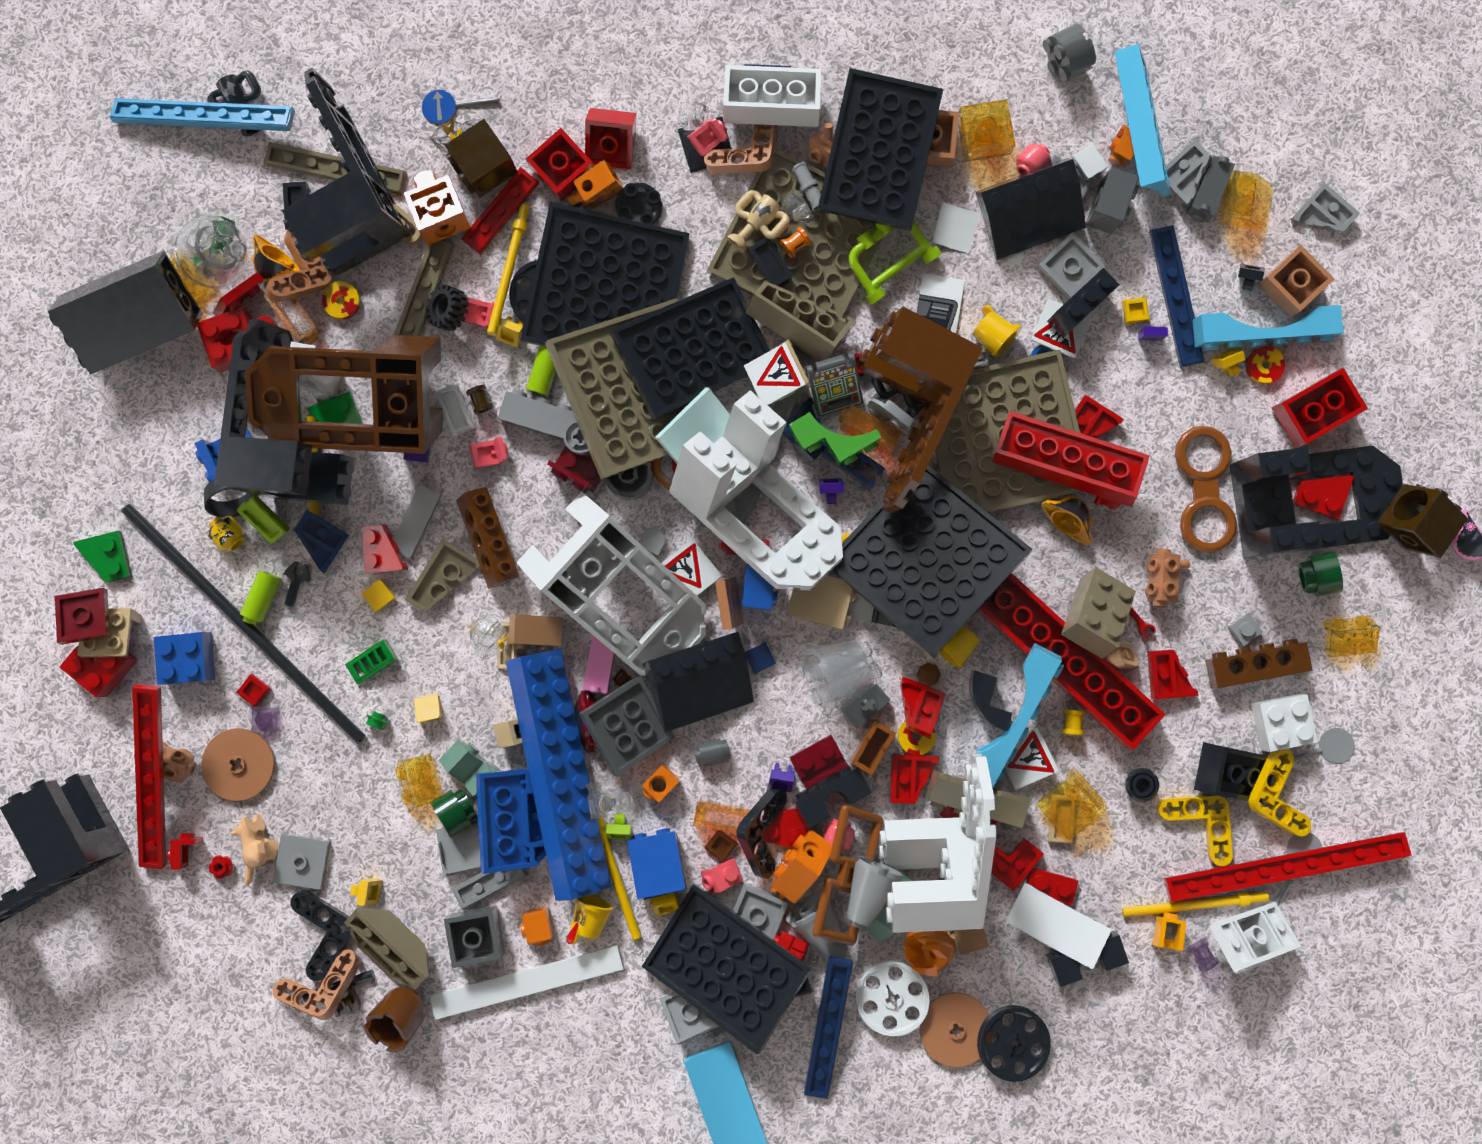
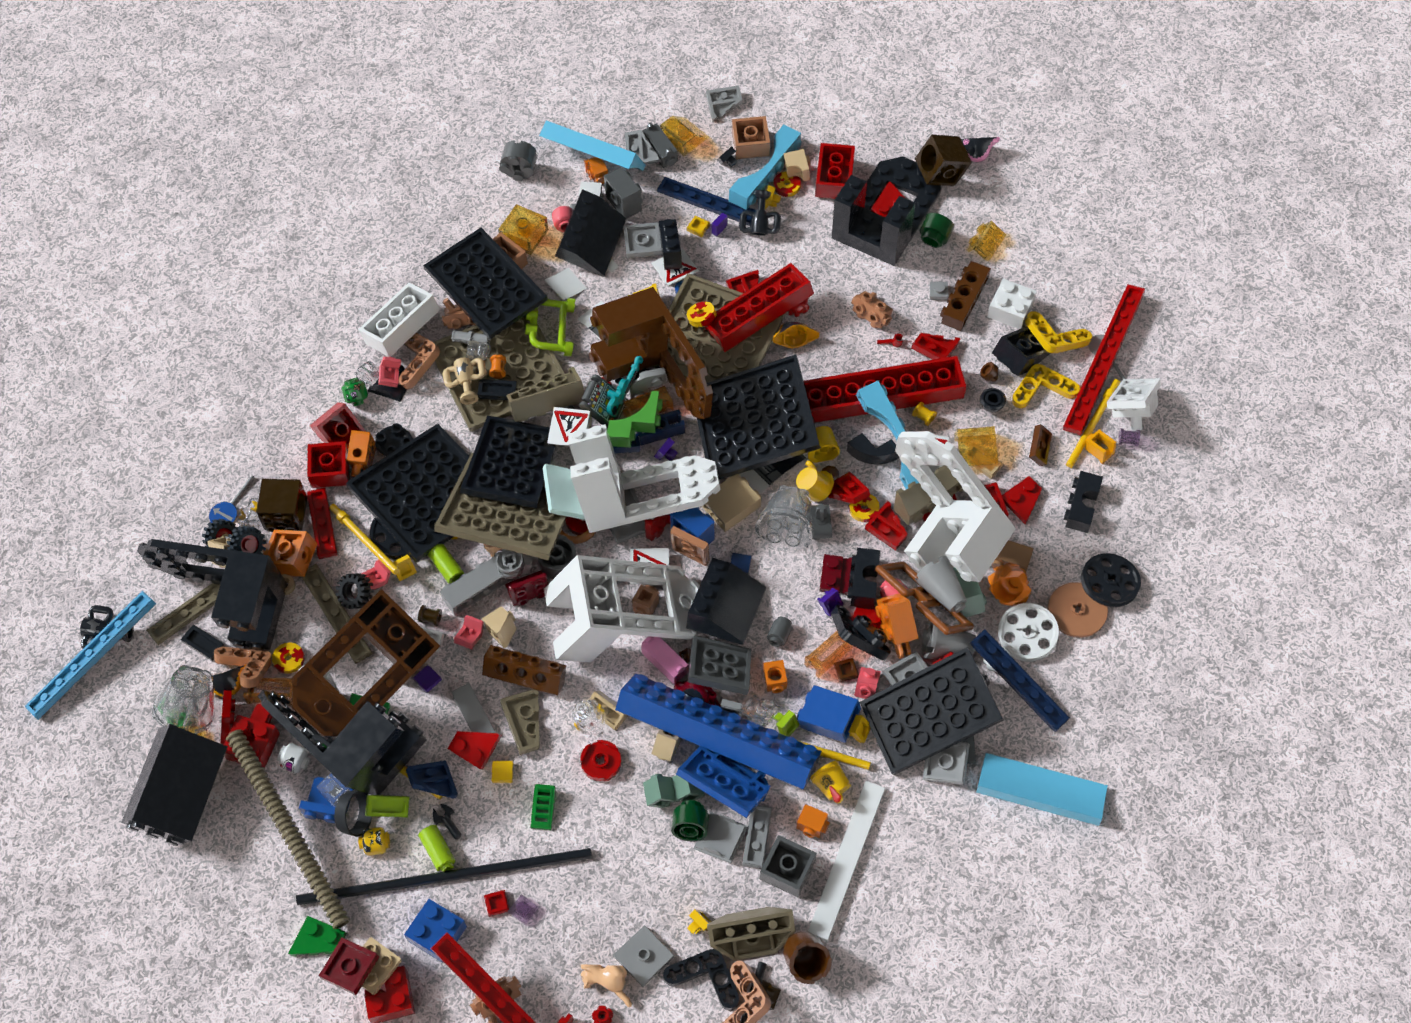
camera: 55 degrees left, 25 degrees down
(169, 448) = (287, 828): none -> dark tan piece
(244, 782) = (531, 966): nougat piece -> none
(377, 720) = (586, 831): green plate -> none
(398, 150) = (225, 535): none -> black brick
(417, 781) = (649, 834): clear yellow bracket -> none
(427, 708) = (606, 793): yellow slope -> none
(443, 672) = (596, 750): none -> red plate
(514, 479) = (500, 625): none -> tan slope
(535, 630) = (609, 681): medium nougat brick -> none
(596, 765) = (731, 706): none -> light grey tile
(644, 599) = (645, 600): none -> nougat brick
(661, 119) = (354, 391): none -> green head
(771, 845) = (871, 633): none -> black plate
(861, 395) = (619, 395): none -> teal piece
(872, 747) = (850, 531): dark orange brick -> none
(902, 671) = (816, 482): none -> yellow hat
(1013, 414) = (701, 314): none -> yellow piece
(1058, 926) = (1050, 501): white sticker -> none
(1098, 612) = (865, 350): dark tan brick -> none
(1123, 657) = (900, 359): light nougat plate -> none
(1124, 868) = (1040, 445): none -> reddish brown plate
(1177, 754) = (989, 372): none -> reddish brown tile
(1193, 372) = (760, 221): none -> black piece
(1205, 489) = (836, 257): dark orange bar -> none
(1295, 361) = (797, 164): none -> tan brick
(1334, 745) = (1048, 291): light grey piece -> none

